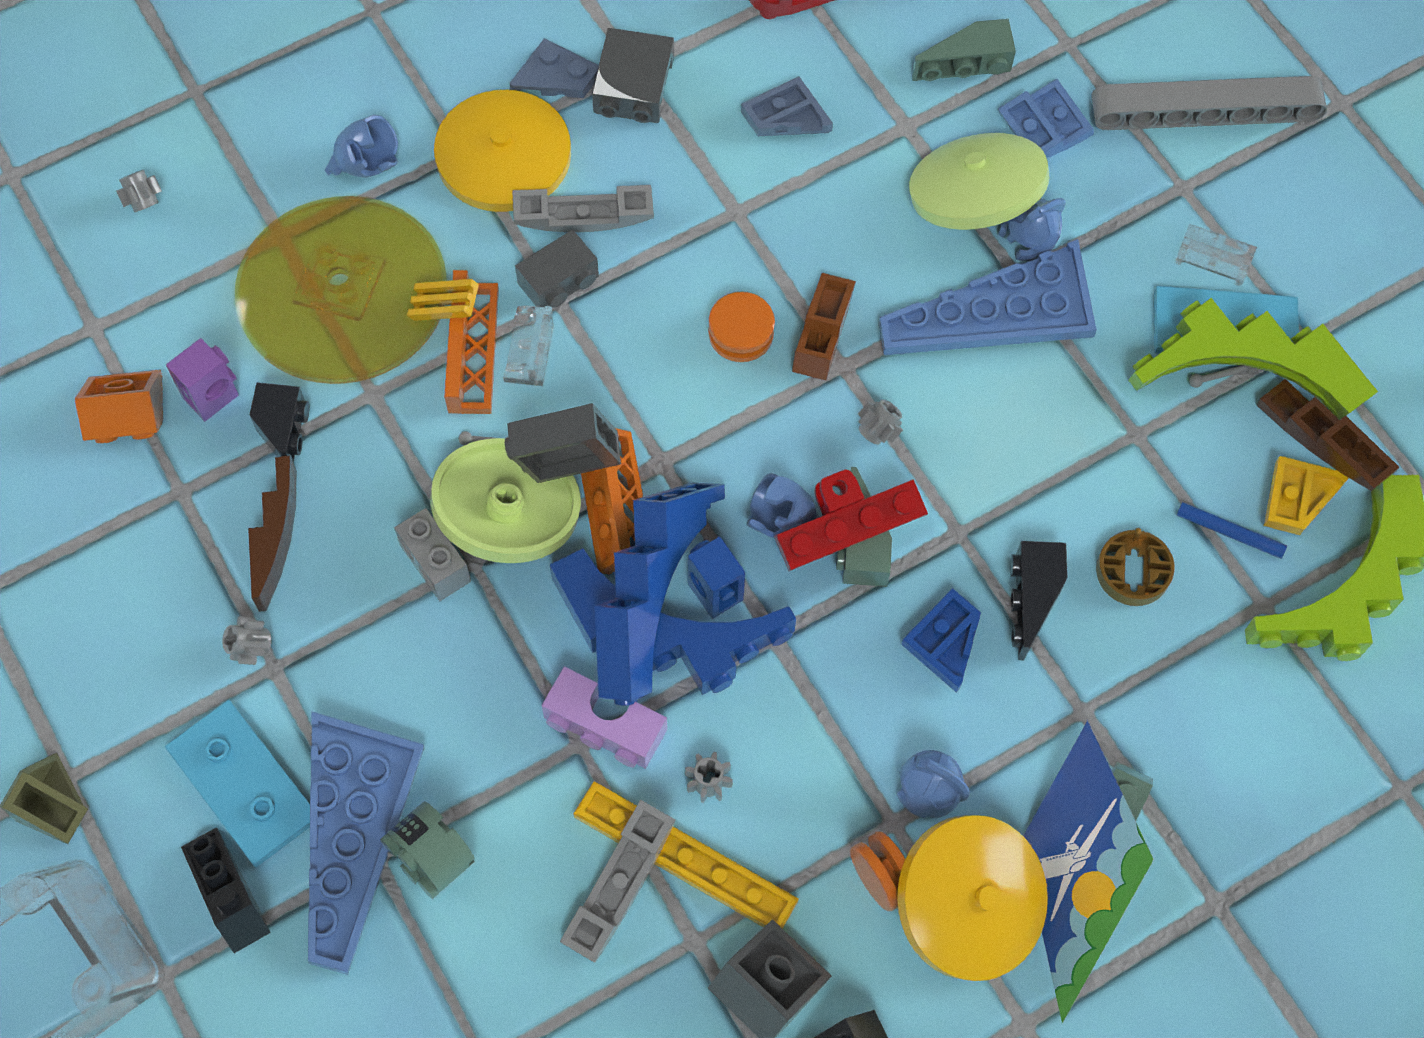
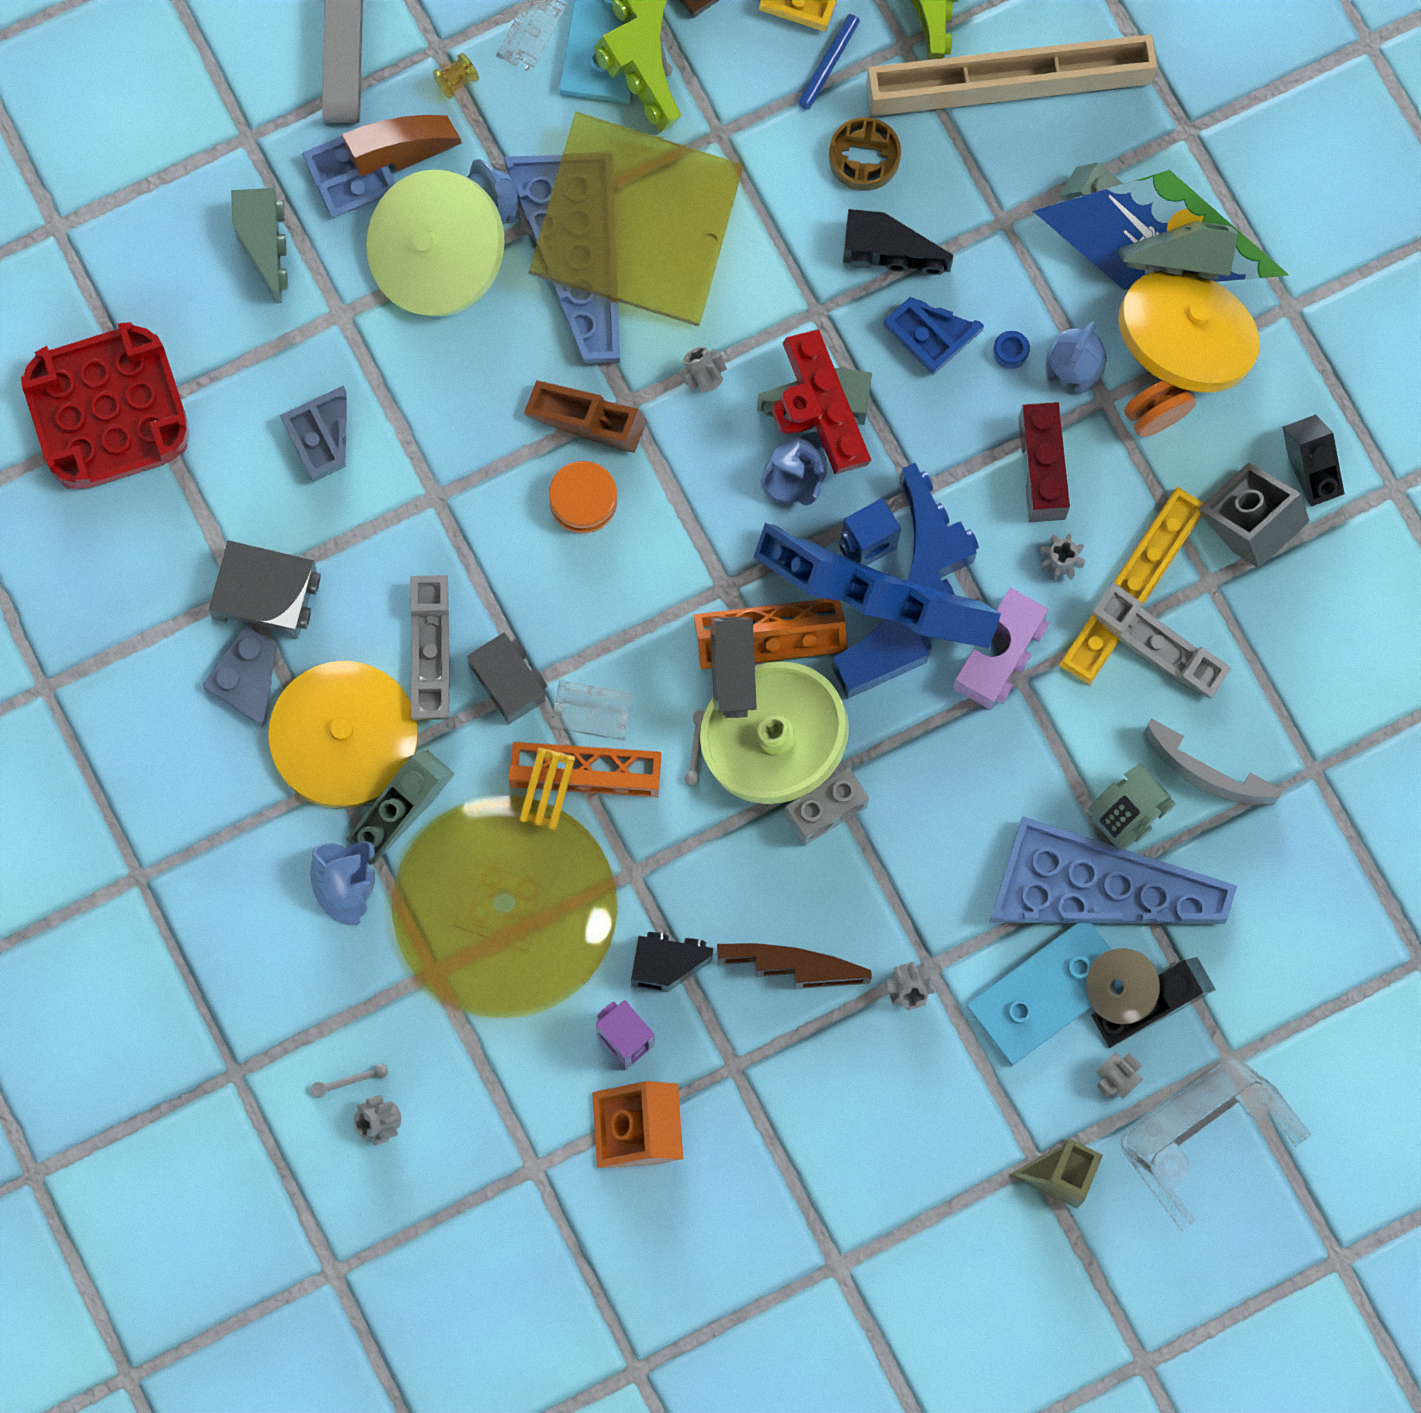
camera: 90 degrees left, 10 degrees up
(143, 851) = (1119, 1075): none -> light grey gear
(176, 153) = (319, 1089): none -> light grey hinge
(234, 848) = (1139, 982): none -> dark tan dish
(438, 195) = (402, 802): none -> sand green slope
(502, 894) = (1253, 790): none -> light grey slope
(836, 747) = (1045, 459): none -> dark red arch
(938, 722) = (1011, 349): none -> blue tile
(1031, 356) = (636, 219): none -> clear yellow piece
(1070, 899) = (1191, 247): none -> sand green slope
(1079, 151) = (399, 141): none -> dark orange slope
(1155, 197) = (455, 75): none -> clear yellow bush
(1245, 706) = (1011, 75): none -> tan brick

